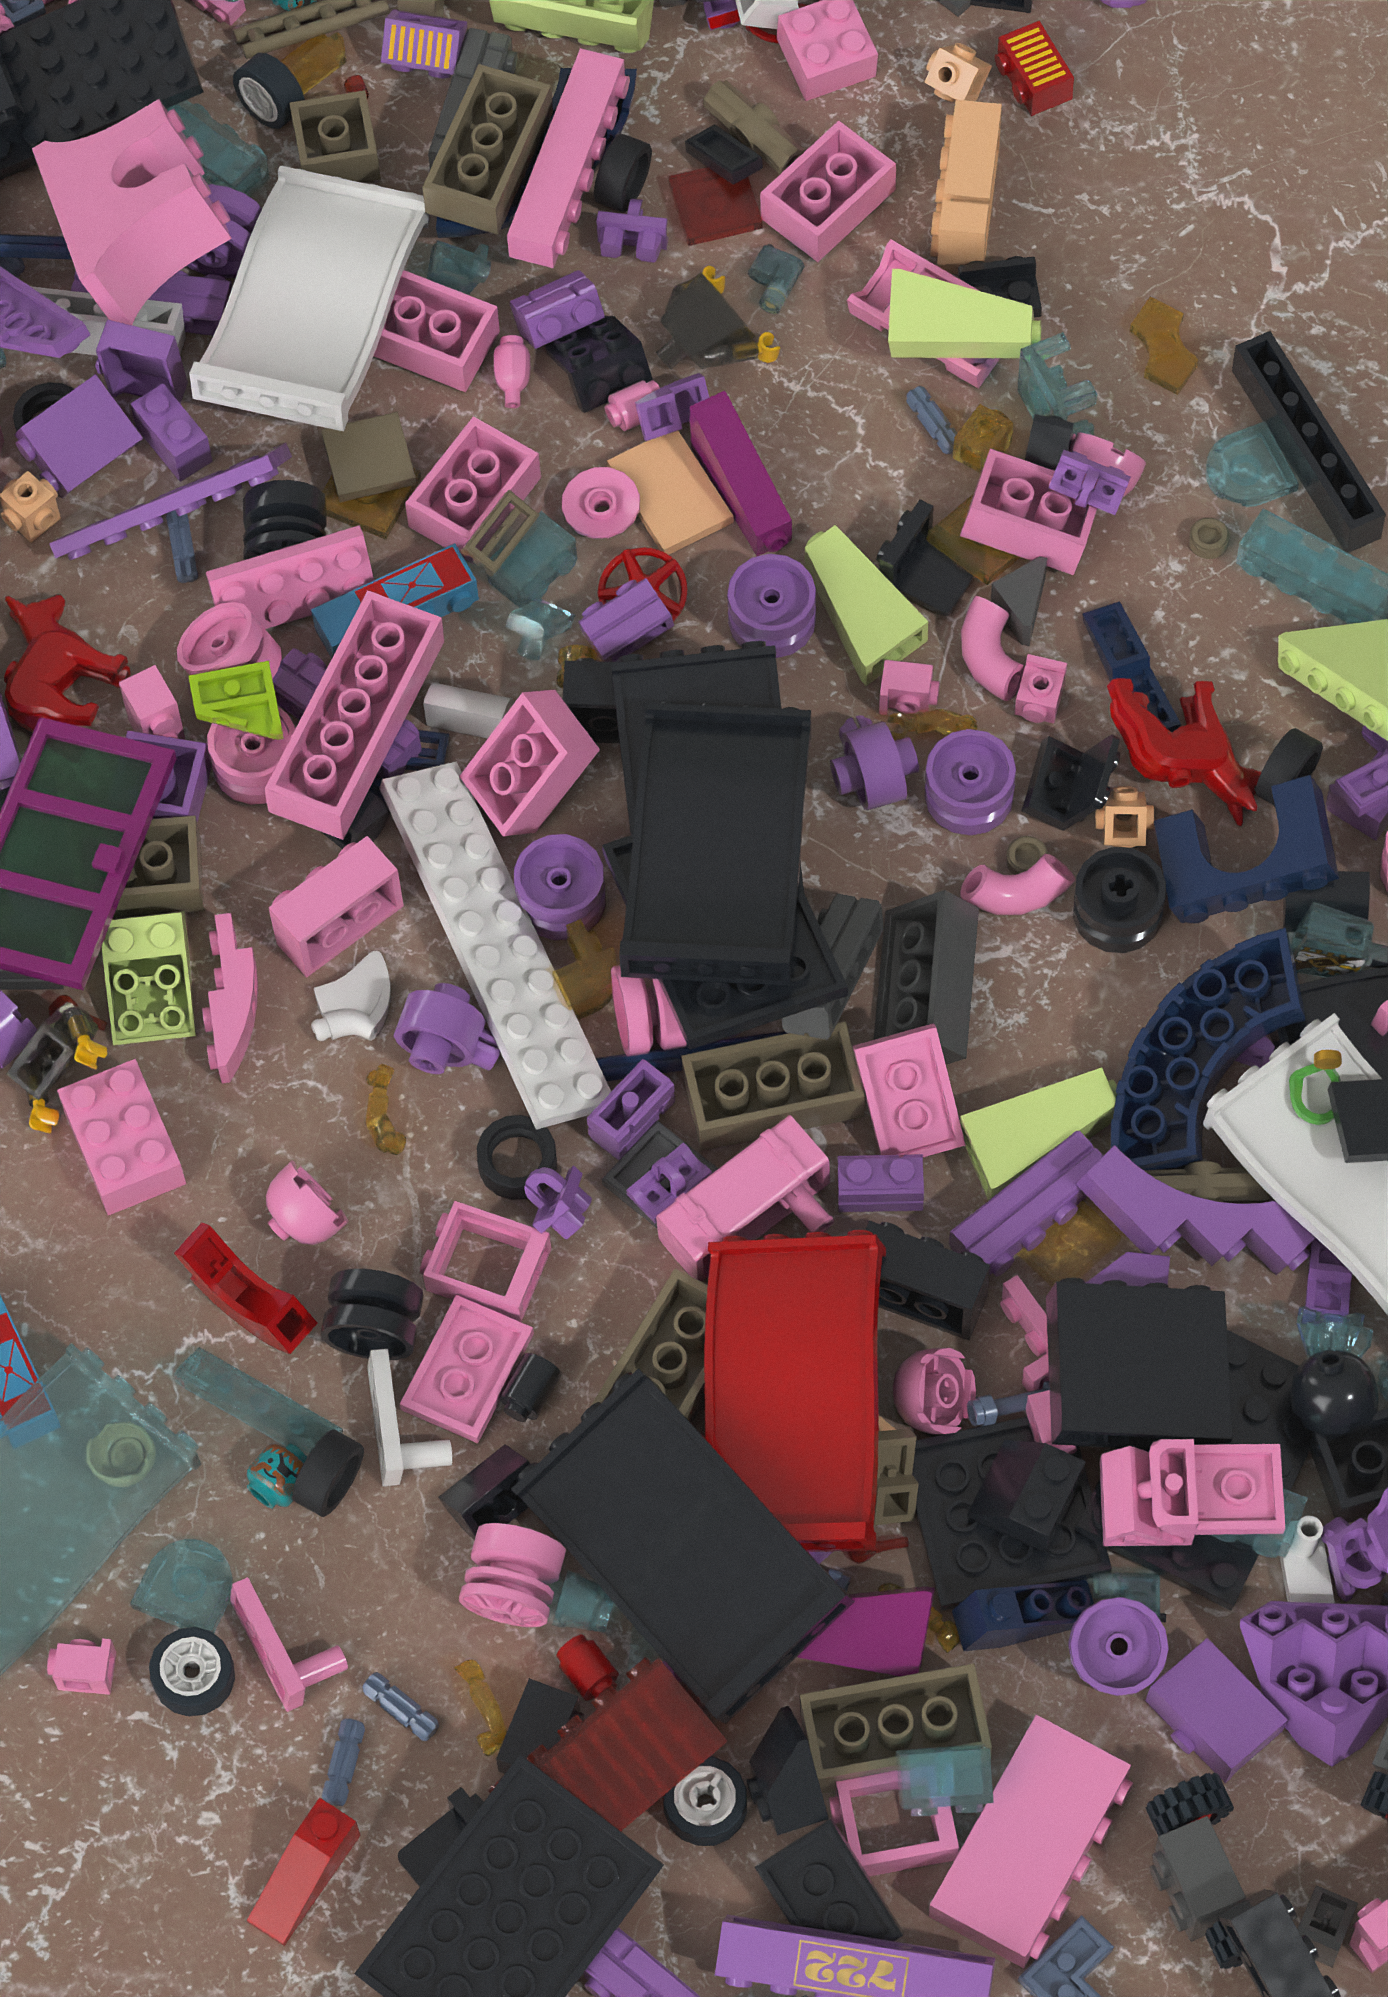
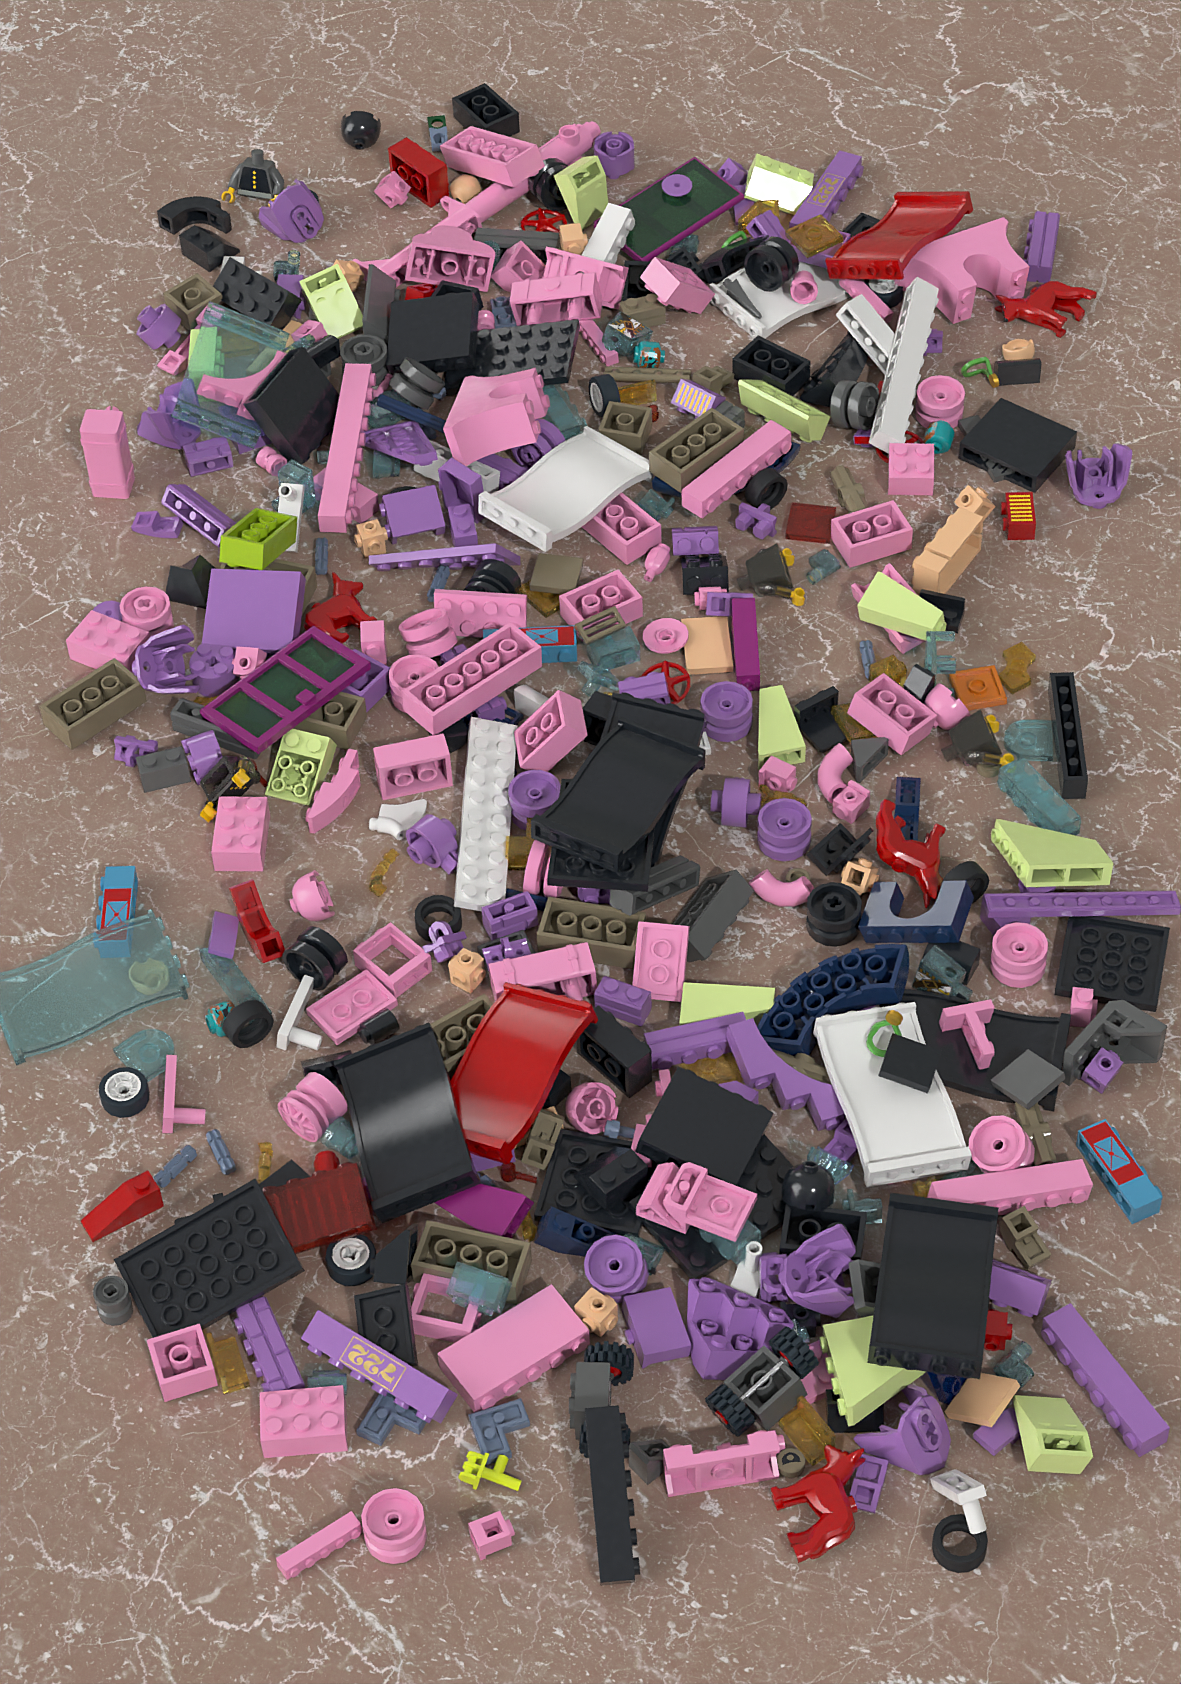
camera: 25 degrees right, 15 degrees down
(83, 1666) = (71, 1067): bright pink brick -> none
(195, 1329) = (223, 935): none -> medium lavender slope
(238, 699) = (416, 650): lime wing -> none
(613, 1230) = (467, 970): none -> light nougat brick
(724, 154) = (827, 501): black tile -> none
(1069, 479) = (923, 696): medium lavender hips -> none
(1124, 1727) = (597, 1311): none -> light nougat brick
(1128, 405) = (978, 687): none -> orange tile
(1179, 509) = (976, 742): none -> clear smoke torso

